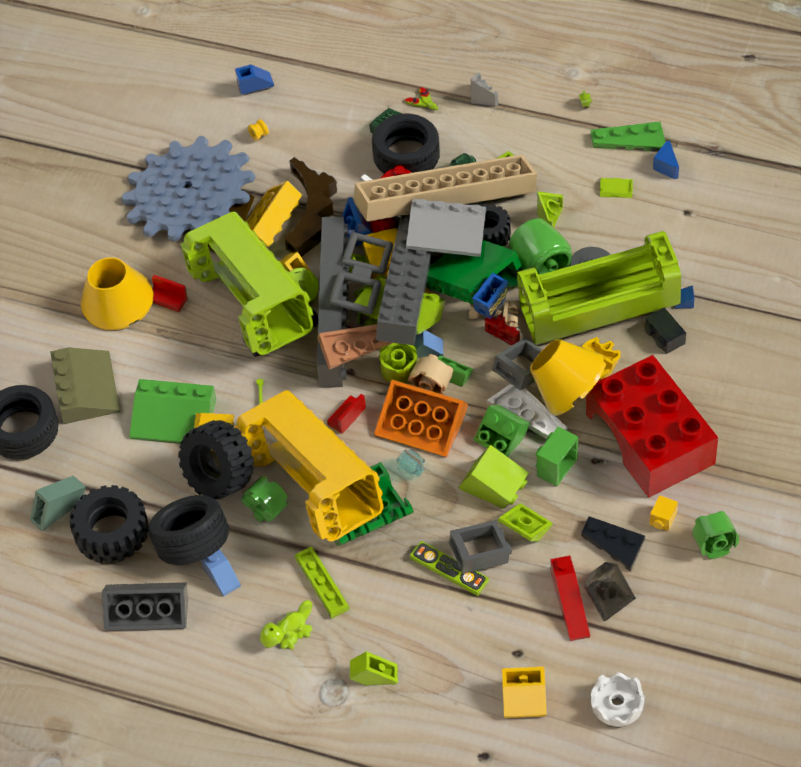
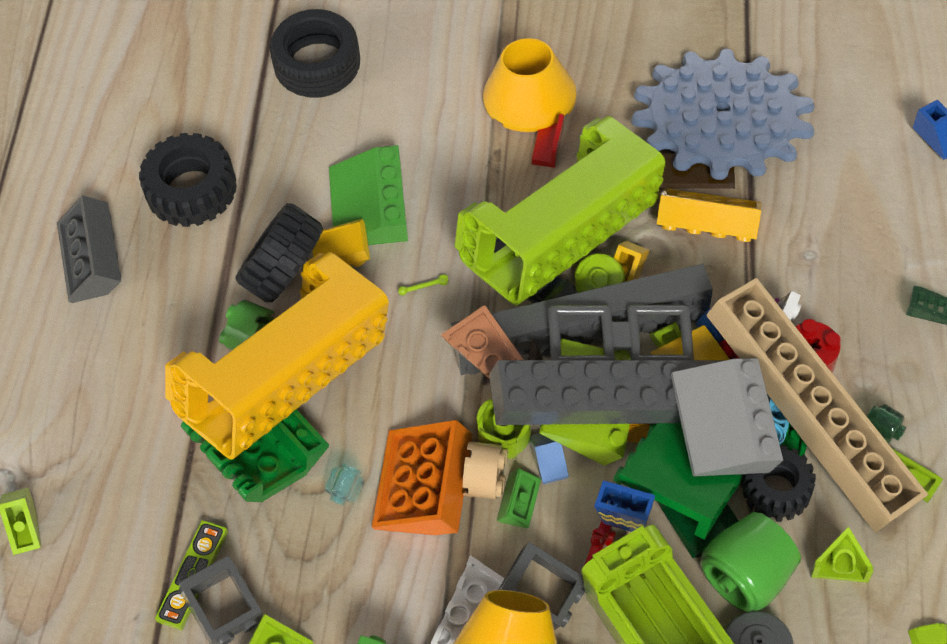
camera: 75 degrees right, 5 degrees up
(55, 501) = (215, 120): sand green slope -> none
(84, 383) = (391, 98): olive slope -> none
(188, 530) = (174, 277): black tyre -> none
(220, 572) = (145, 311): medium blue slope -> none
(258, 129) = (854, 161): yellow wheel -> none
(290, 628) = (74, 408): lime animal -> none
(319, 190) = (775, 256): dark brown arch -> none
(321, 582) = (141, 436): lime tile -> none
(347, 413) = (413, 389): red panel -> none
(401, 128) = (897, 309): black tyre -> none
(494, 478) = (336, 596): lime slope -> none
(501, 429) = (425, 587): bright green slope -> none

